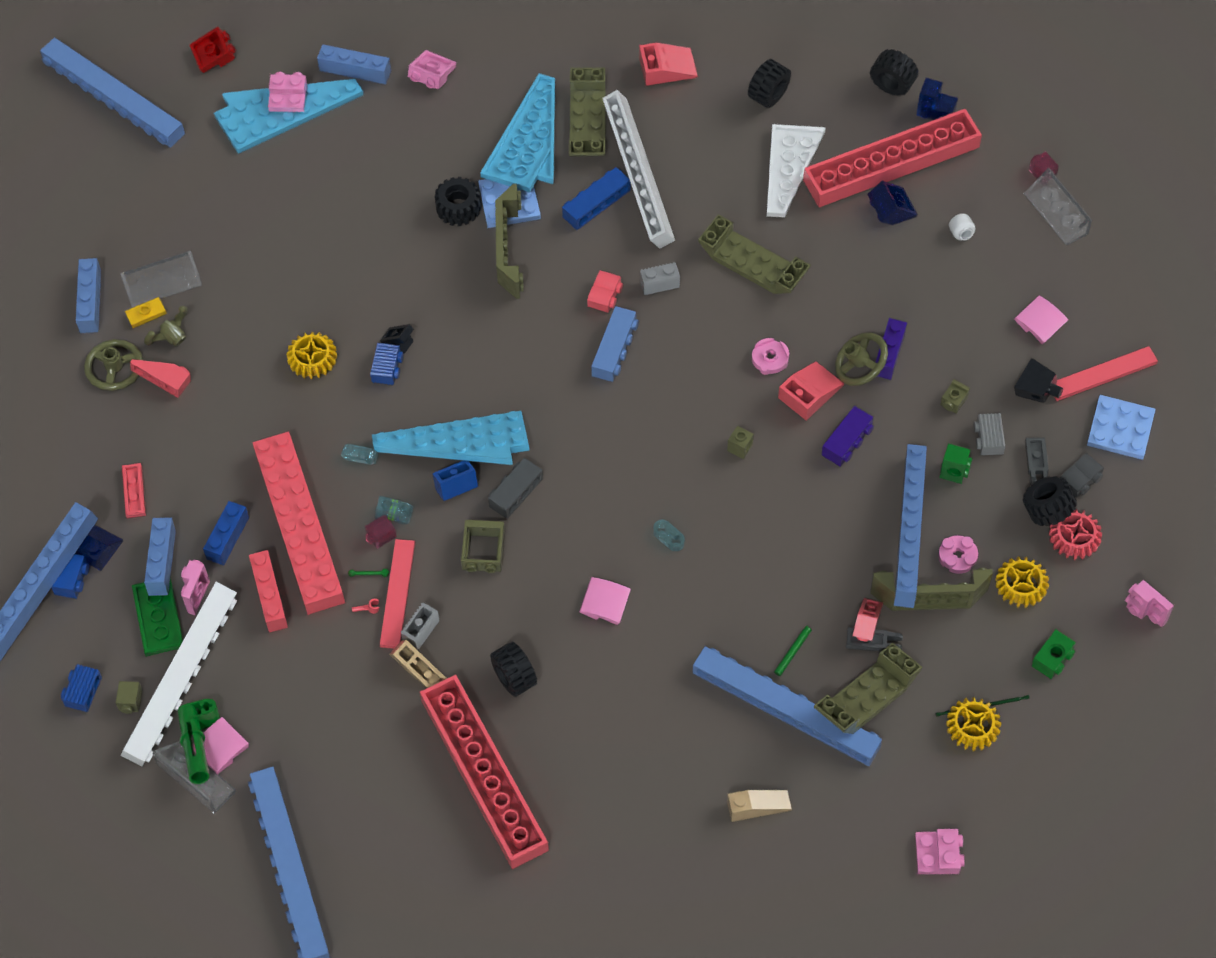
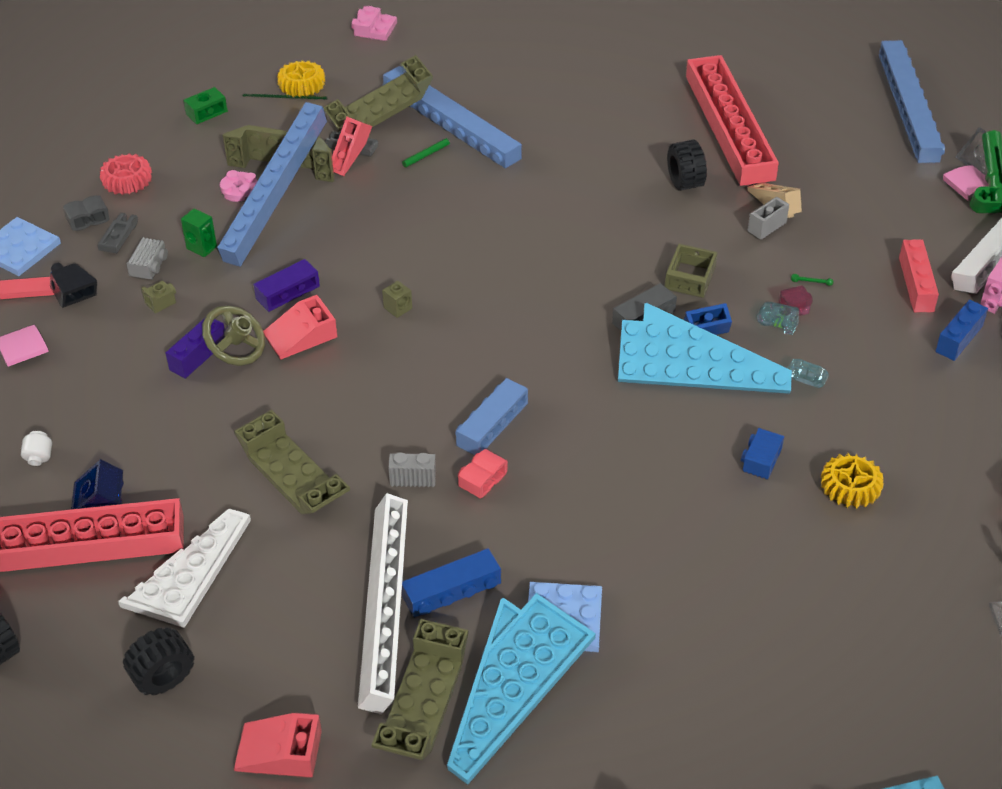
camera: 165 degrees left, 15 degrees down
(298, 523) = (884, 329): coral brick -> none
(373, 610) = (811, 253): coral hand -> none
(397, 593) = (784, 258): coral tile -> none
(399, 336) = (744, 475): black slope -> none
(457, 189) = (628, 631): black tyre -> none
(507, 206) = (576, 566): olive slope -> none
(605, 600) = (583, 212): bright pink slope -> none
(666, 538) = (498, 251): clear light blue beam -> none
(757, 803) = (507, 67): tan slope -> none
(767, 365) = (333, 379): bright pink plate -> none
(1023, 592) = (197, 152): yellow gear -> none
(1049, 501) = (136, 171): black tyre -> none
(1147, 601) = (104, 110): bright pink plate -> none

